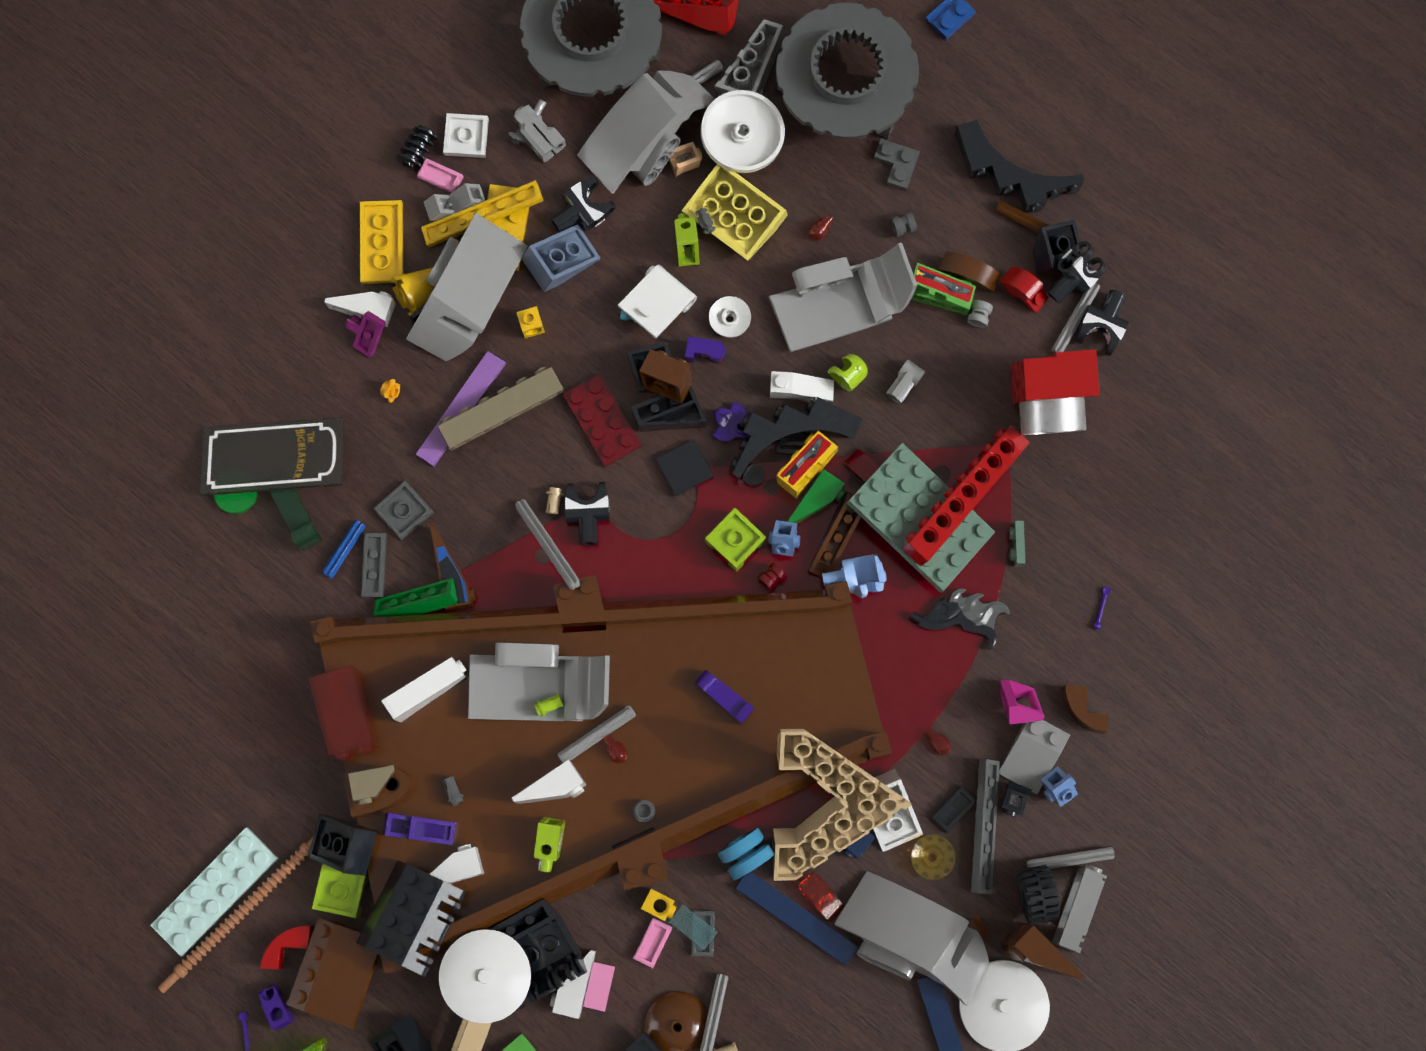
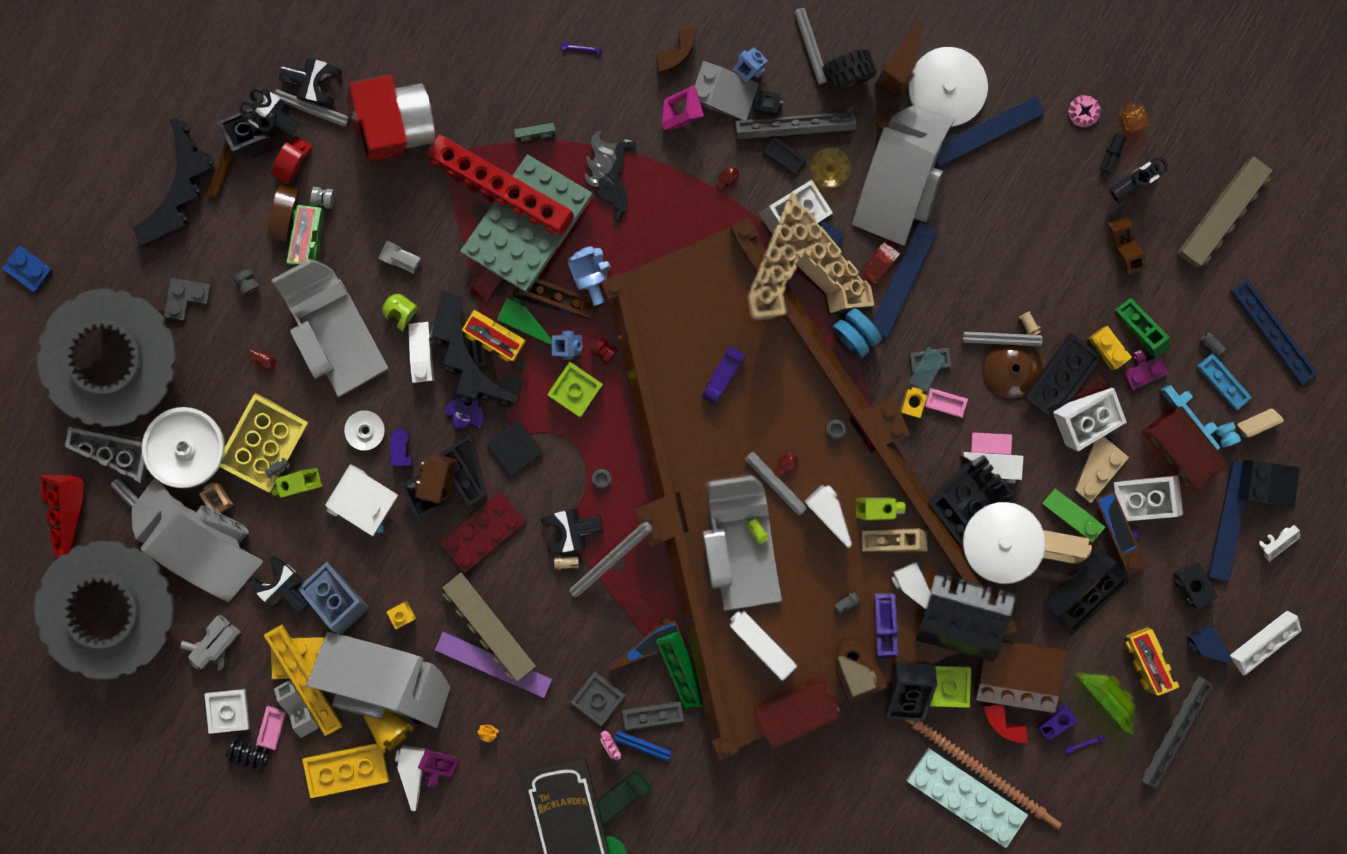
camera: 100 degrees left, 10 degrees up
(350, 513) = (610, 746): none -> bright pink gear
(510, 855) = (894, 540): none -> tan slope
(636, 552) = (601, 478): none -> dark grey plate
(1079, 908) = (855, 32): light grey door -> none

